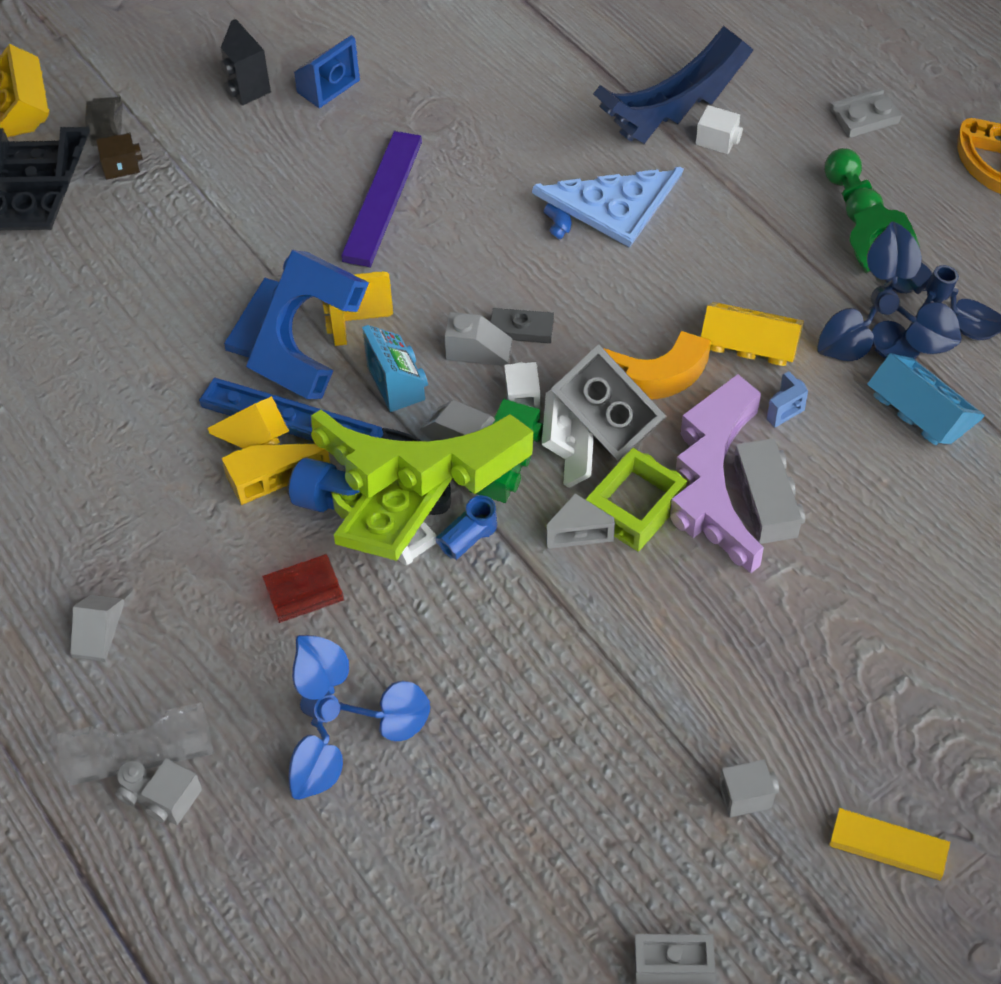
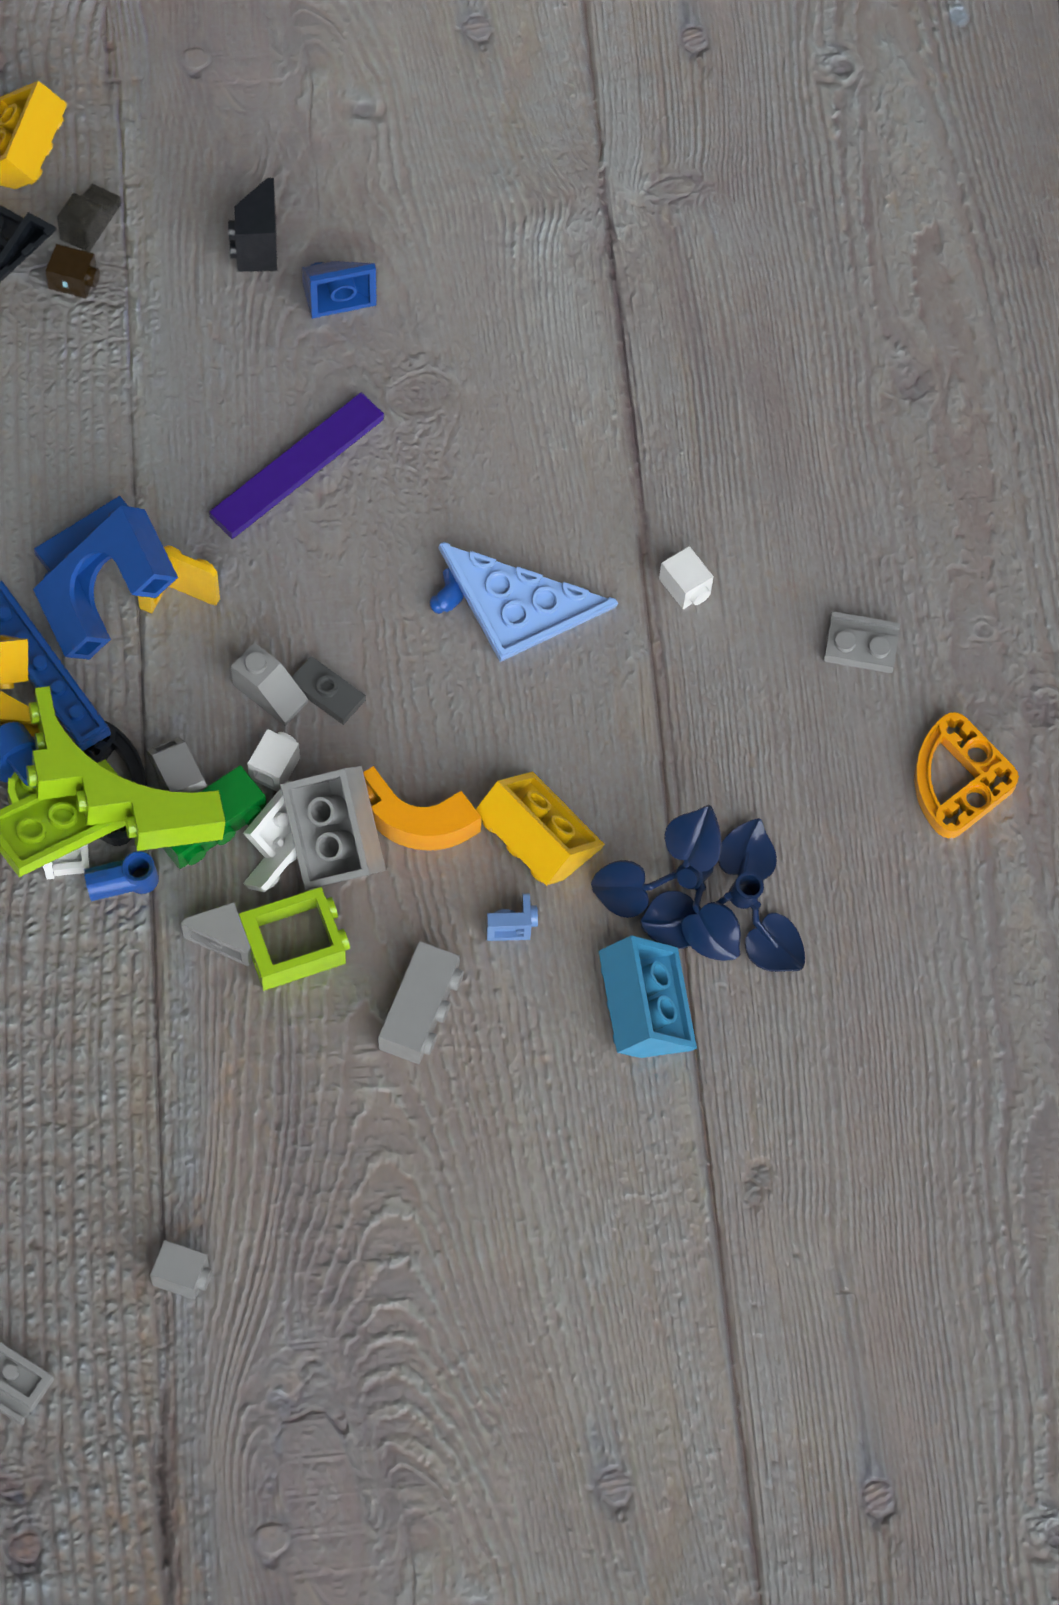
camera: 25 degrees right, 10 degrees up
(393, 368) = (166, 670): dark azure slope -> none
(671, 99) = (663, 516): dark blue arch -> none
(705, 501) = (415, 911): lavender arch -> none
(862, 203) = (749, 779): green piece -> none
(890, 844) = (266, 1393): yellow tile -> none

